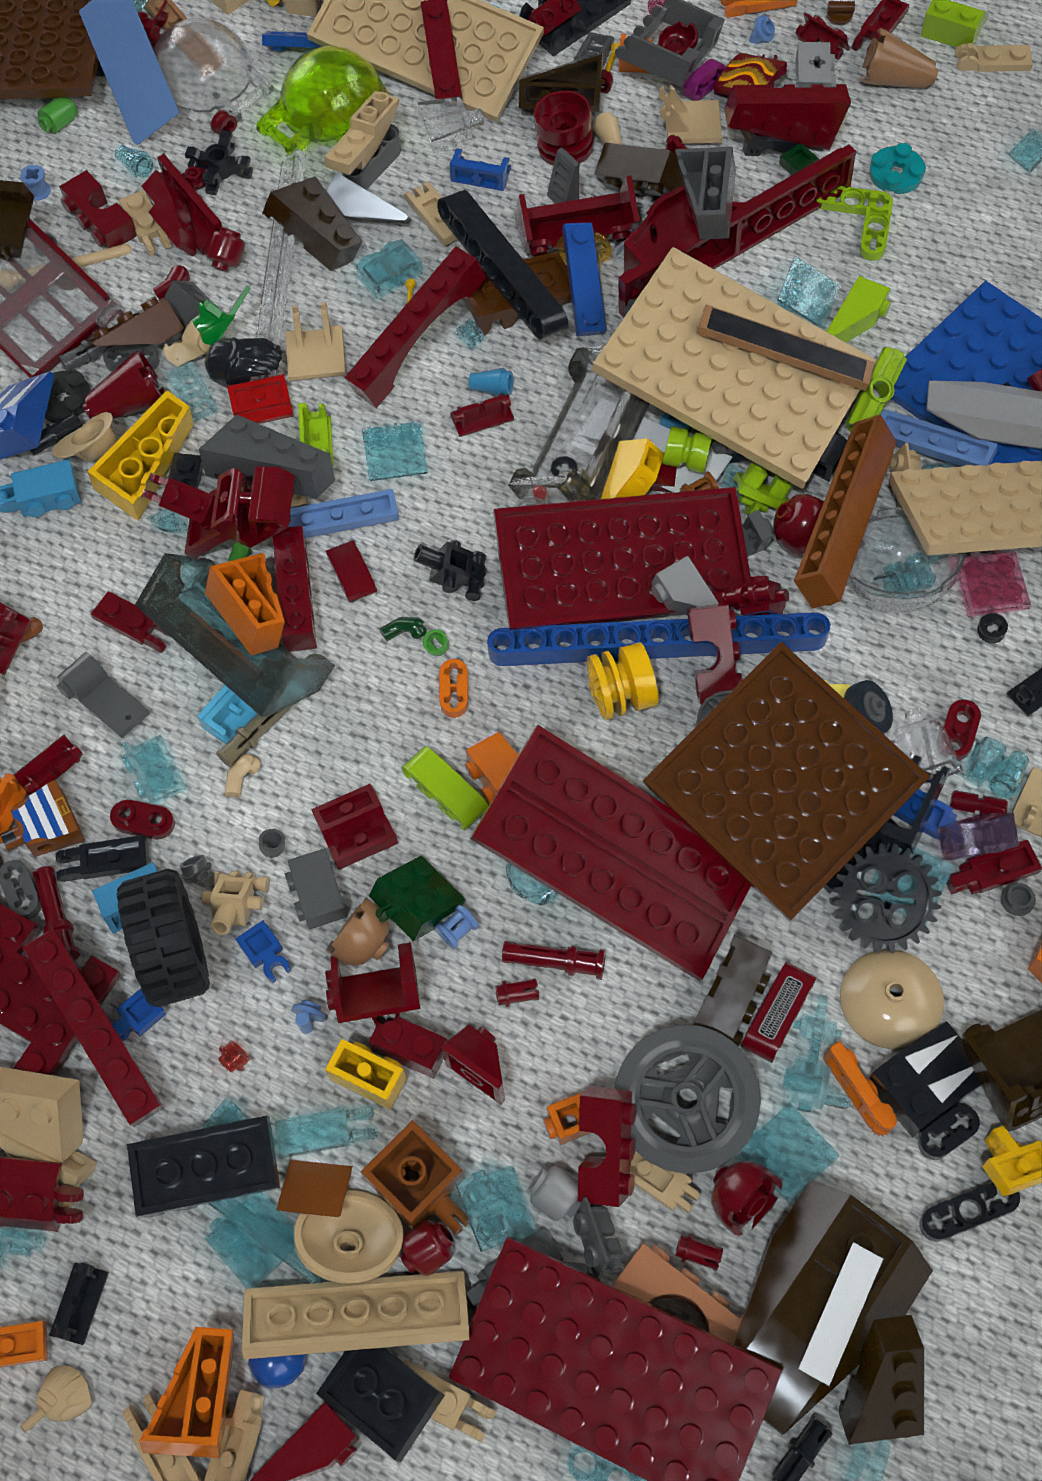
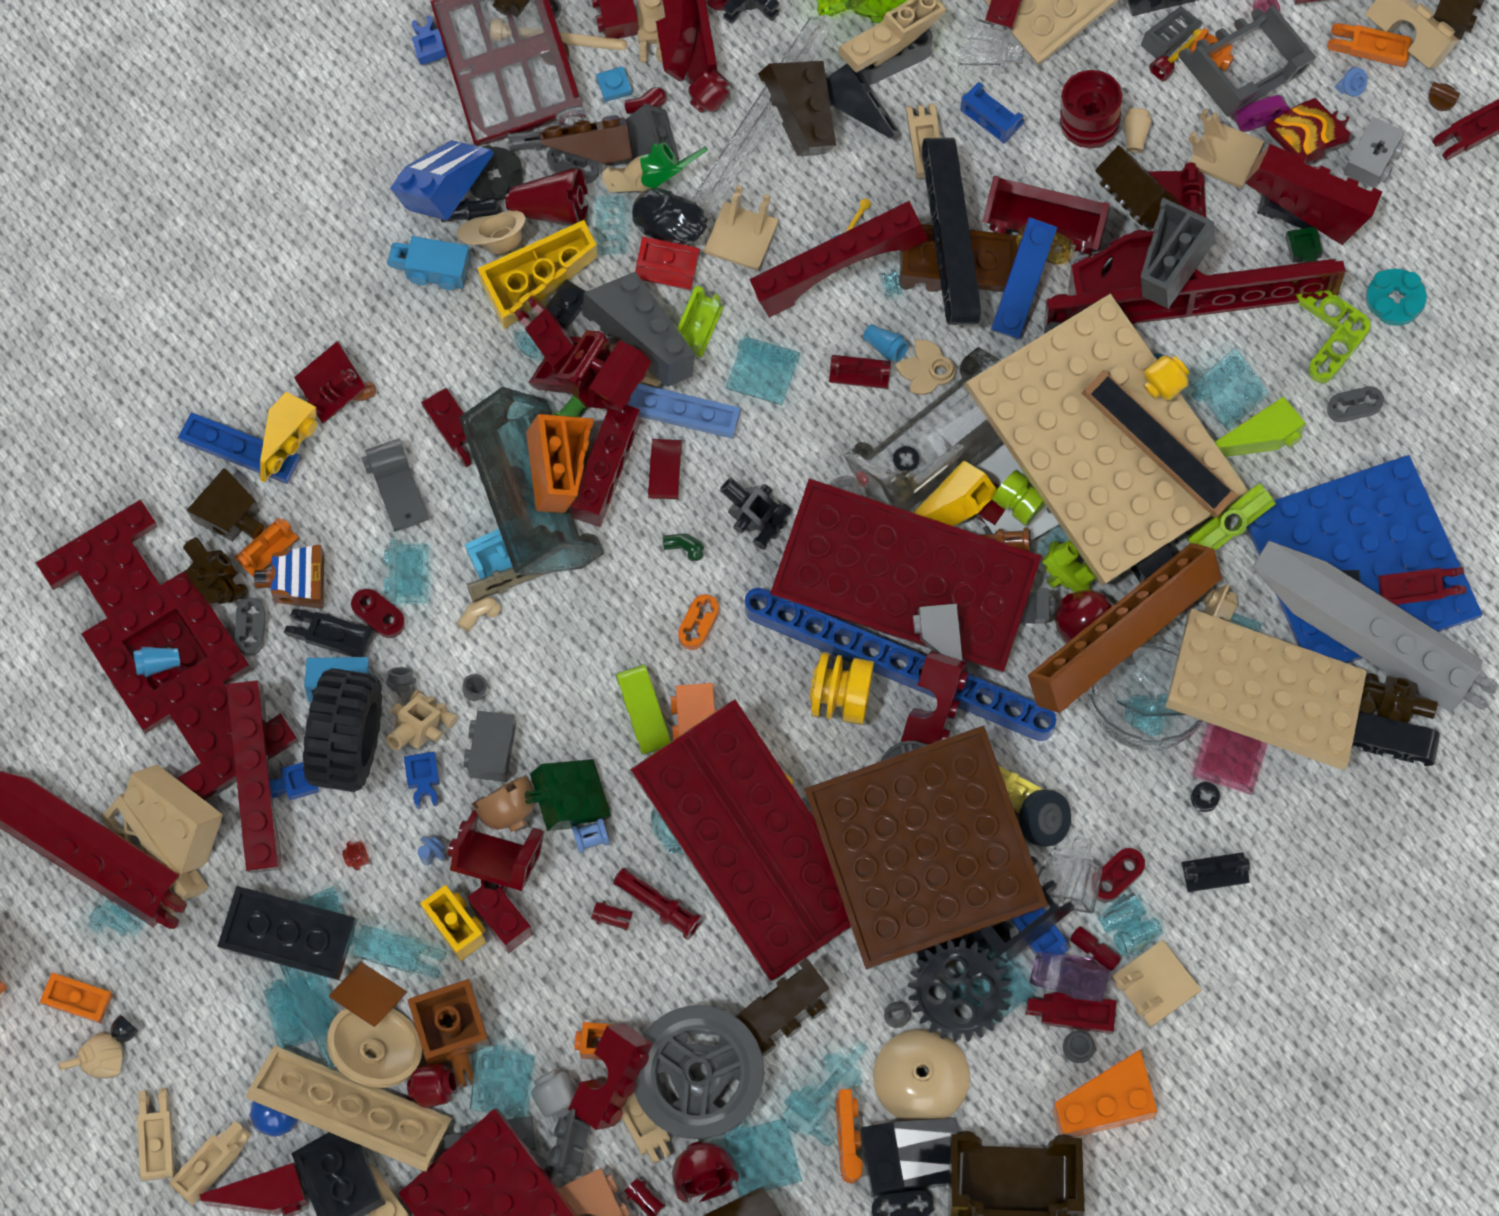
camera: 25 degrees right, 5 degrees up
(48, 765) = (321, 528): dark red hinge -> none
(53, 907) = (268, 658): dark red pin -> none
(74, 1353) = (122, 1029): none -> black hinge
(79, 1303) = (144, 992): black hinge -> none
(135, 281) = (613, 84): none -> dark azure plate
(195, 1402) = (198, 1109): orange wedge -> none
(354, 826) = (551, 705): dark red slope -> none
(389, 268) = (851, 180): clear light blue brick -> none
(440, 637) = (697, 575): bright green hinge -> none
(476, 1059) = (549, 955): dark red slope -> none
(536, 389) = (923, 366): none -> tan plate
(564, 178) = (1060, 166): dark grey slope -> none
(579, 76) = (1127, 60): dark brown wedge -> none
(679, 37) = (1259, 53): dark red hair -> none
(757, 597) = (1001, 669): dark red piece -> none
(762, 289) = (1166, 377): none -> yellow head
(778, 1012) = (817, 1038): dark red beam -> none
(817, 29) = (1403, 107): dark red hinge -> none
(841, 957) = (899, 1020): none -> dark grey hinge
(897, 64) = (1460, 184): medium nougat cone -> none
(920, 266) = (1353, 398): none -> dark grey beam
(939, 441) = (1258, 596): medium blue plate -> none

